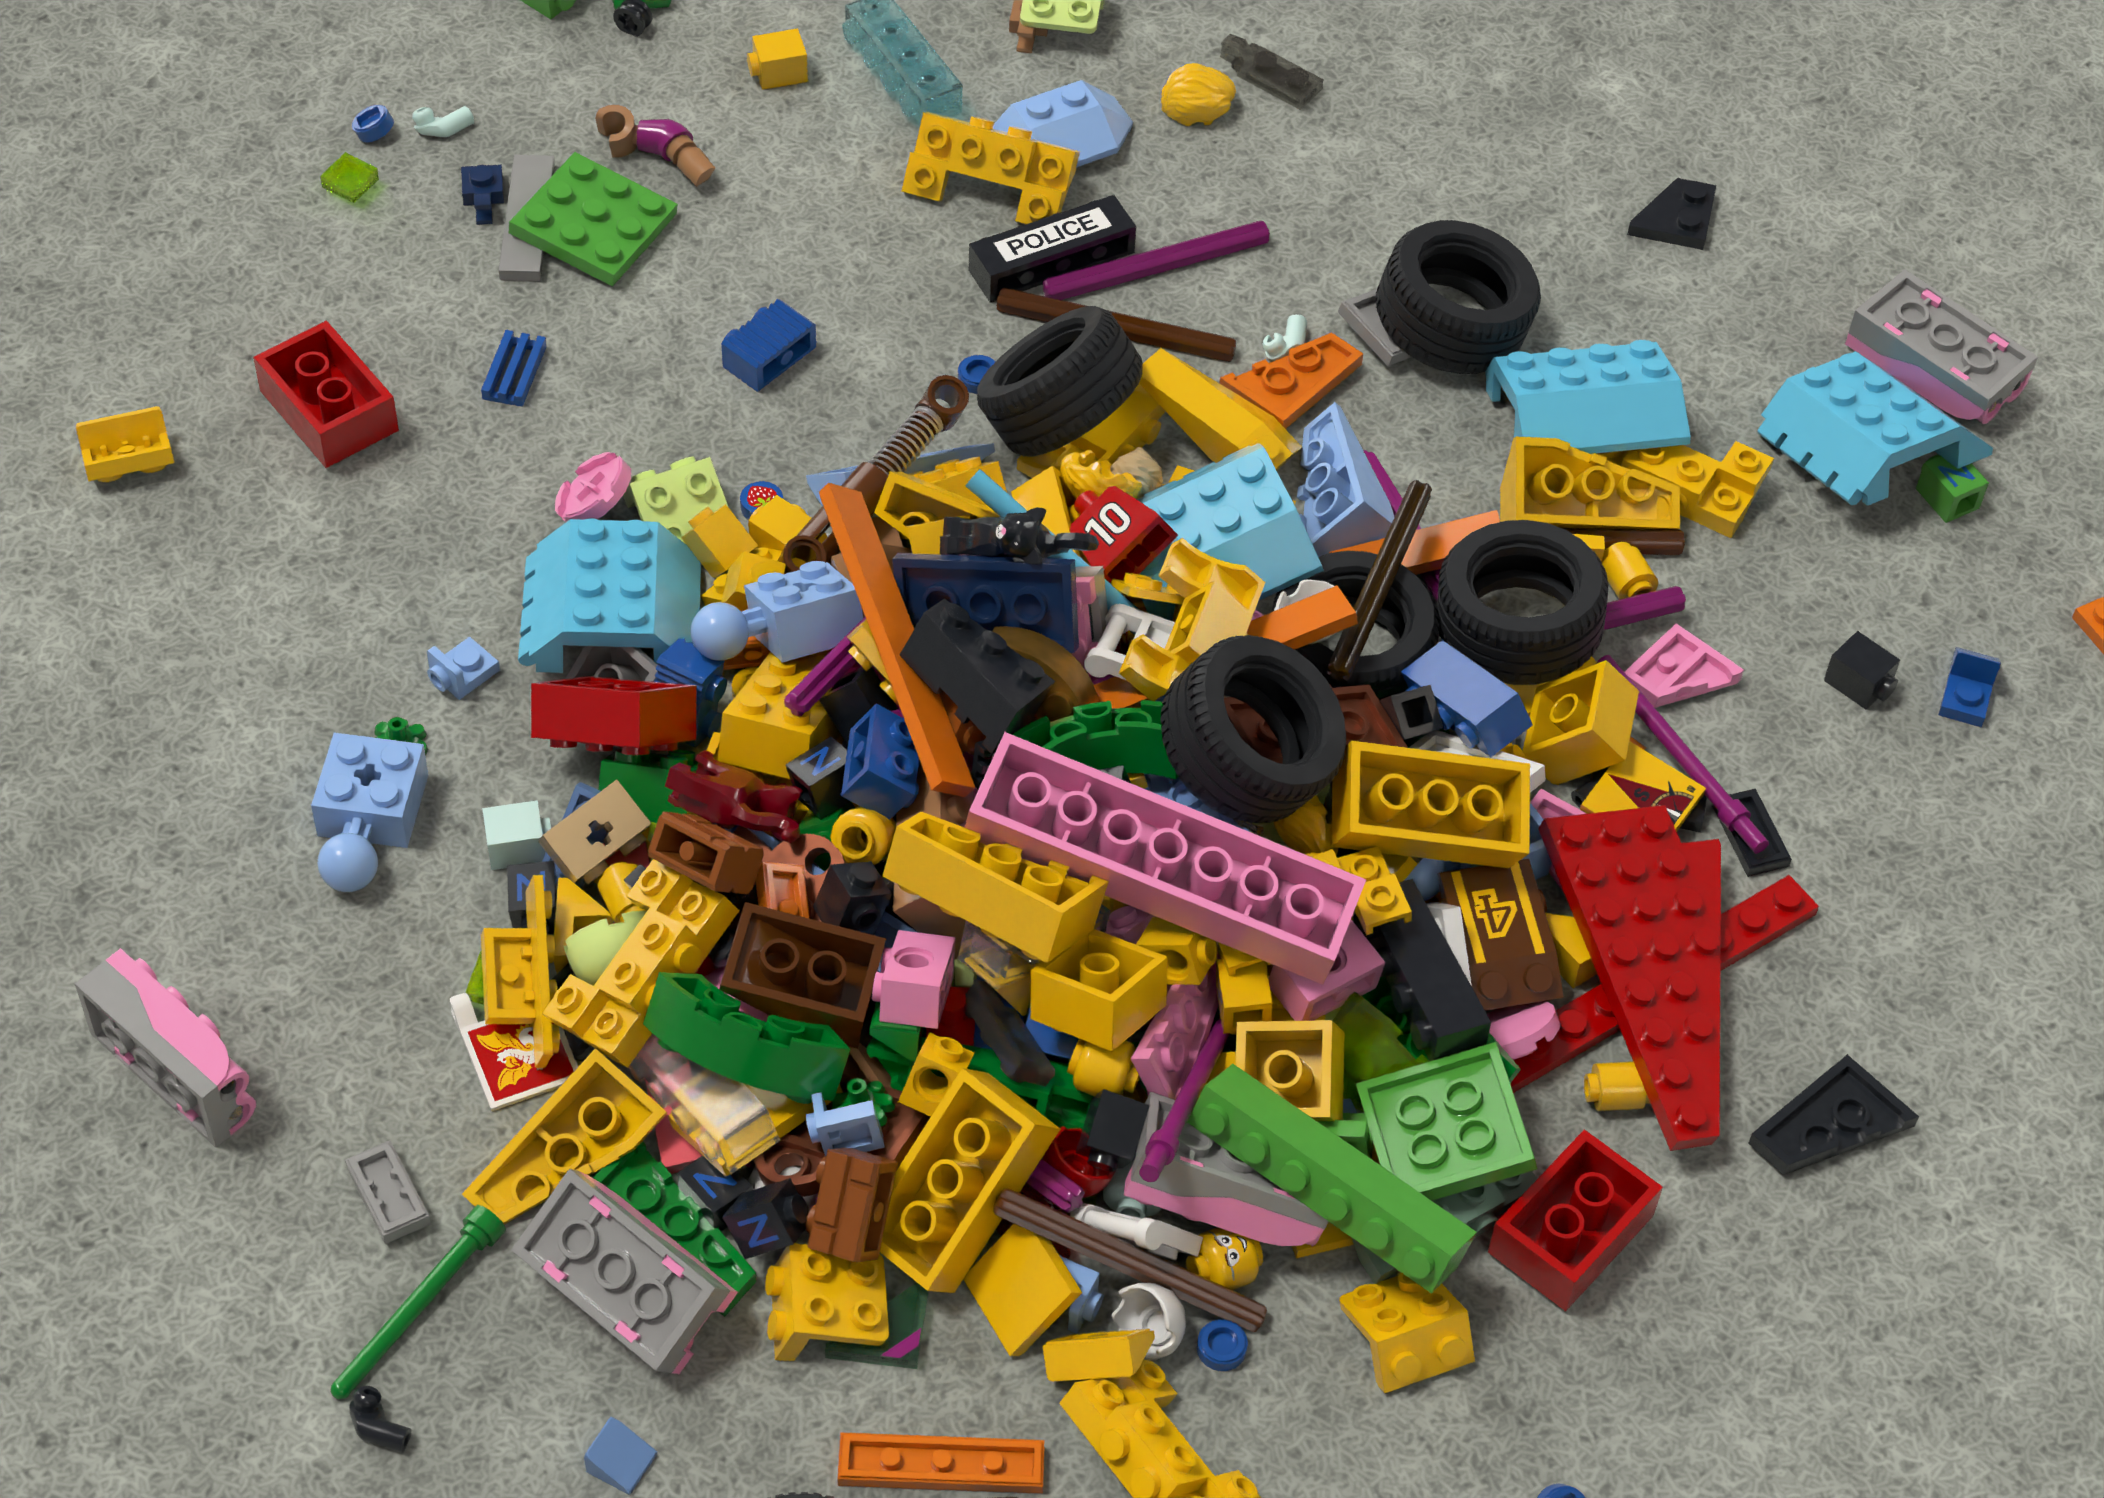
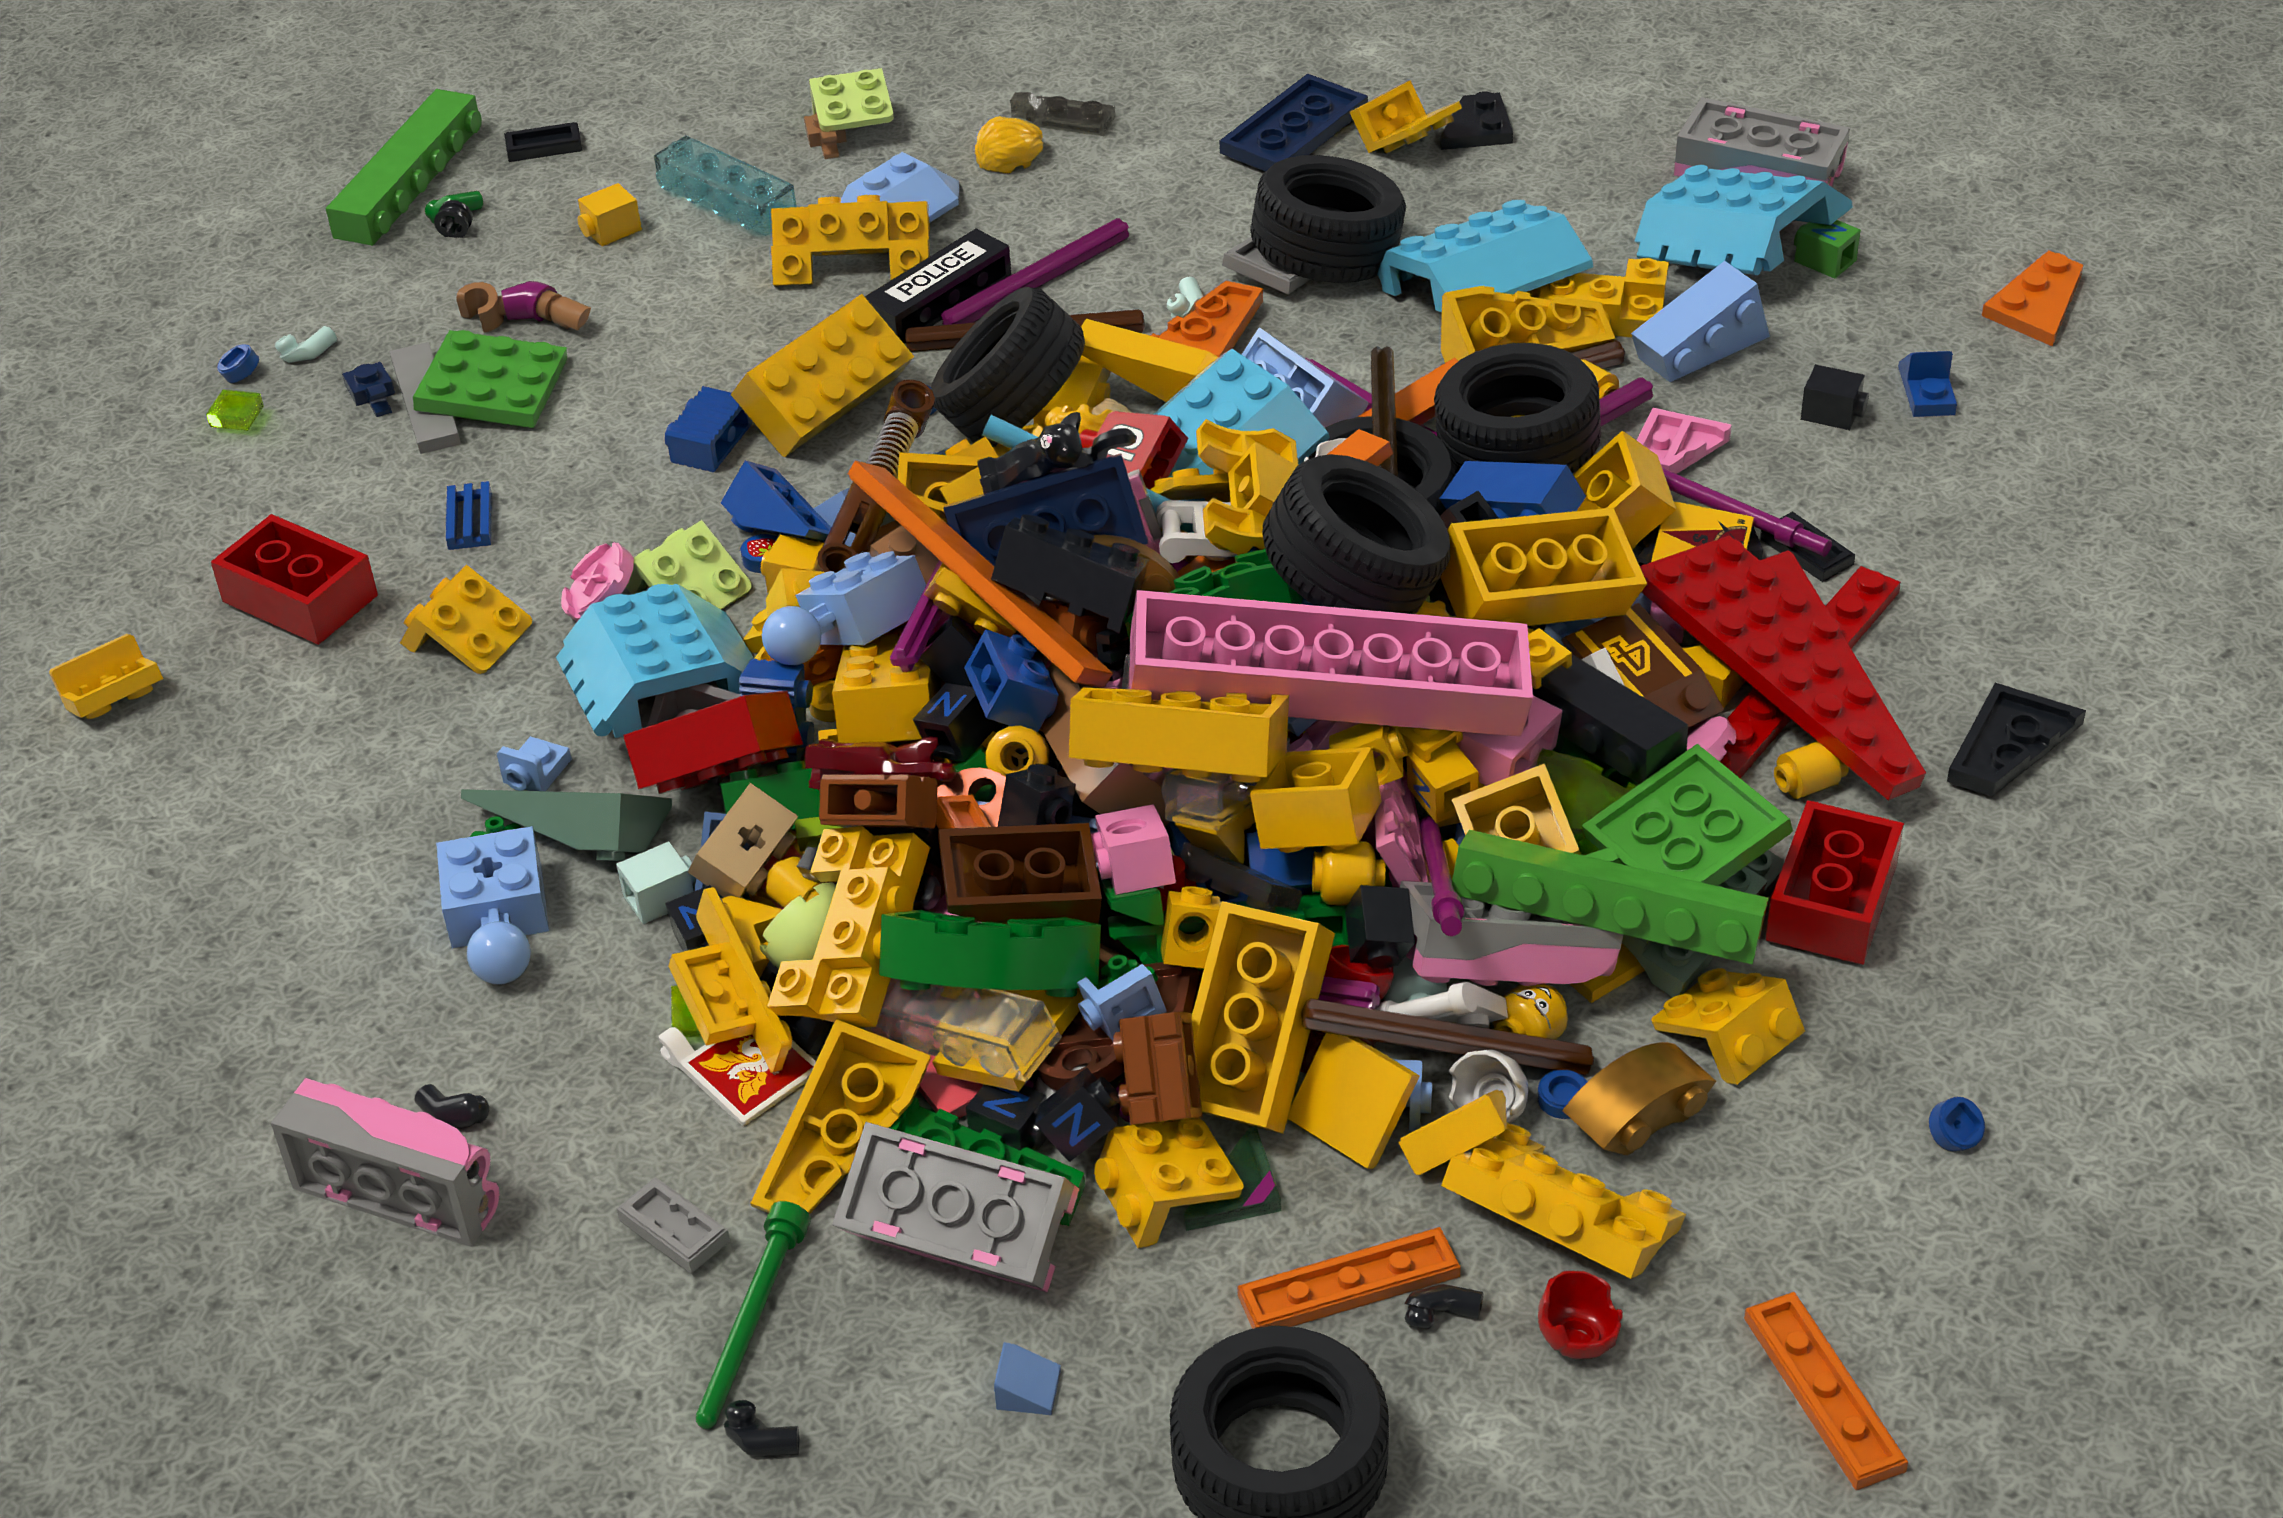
camera: 15 degrees left, 10 degrees down
(248, 1007) = (456, 1110): none -> black arm
(464, 491) = (467, 620): none -> yellow bracket
(472, 743) = (581, 819): none -> sand green wedge
(717, 539) = (739, 586): yellow brick -> none
(785, 459) = (769, 503): none -> blue slope
(892, 324) = (822, 375): none -> yellow brick
(1281, 1378) = (1639, 1096): none -> pearl gold brick
(1490, 160) = (1292, 123): none -> dark blue plate
(1594, 190) = (1398, 117): none -> yellow bracket
(1771, 544) = (1703, 324): none -> light blue wedge

